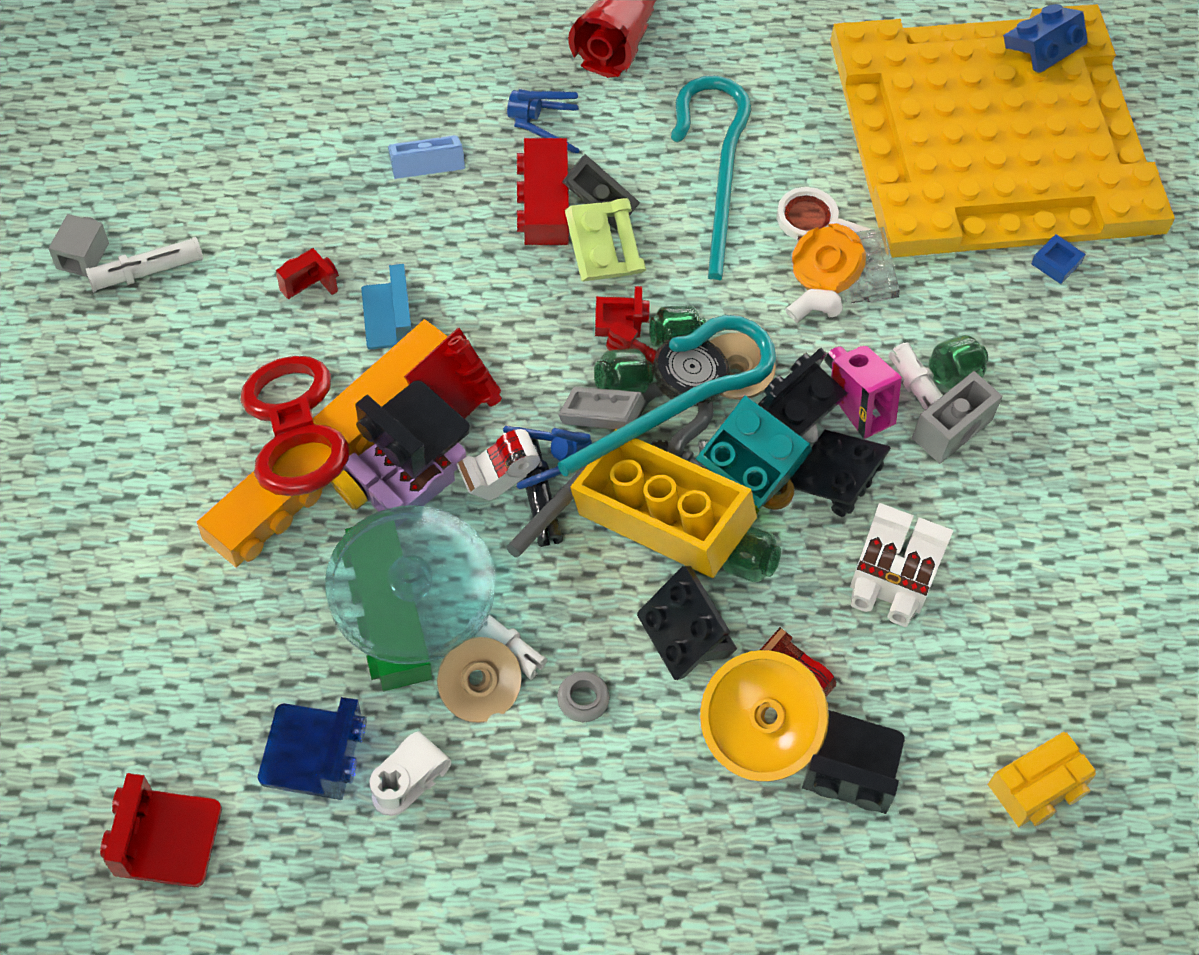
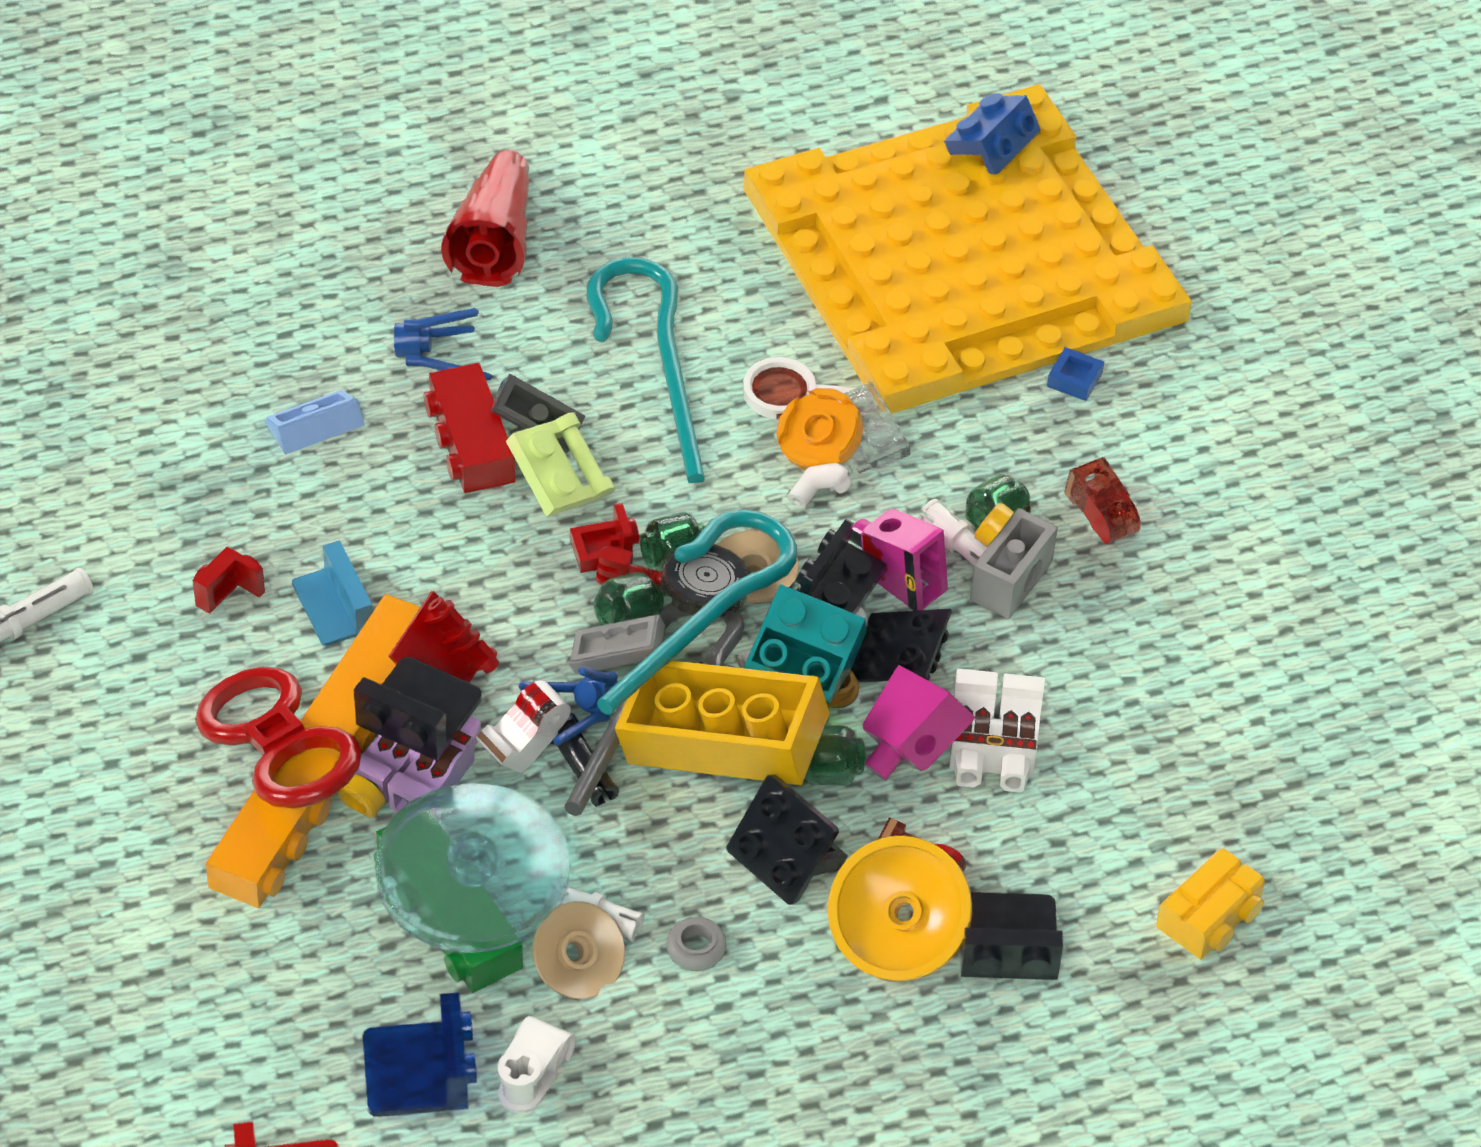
camera: 15 degrees left, 10 degrees down
(825, 544) = (912, 723): none -> dark pink torso
(948, 379) = (993, 524): none -> yellow tile
(1050, 377) = (1103, 500): none -> clear red leg

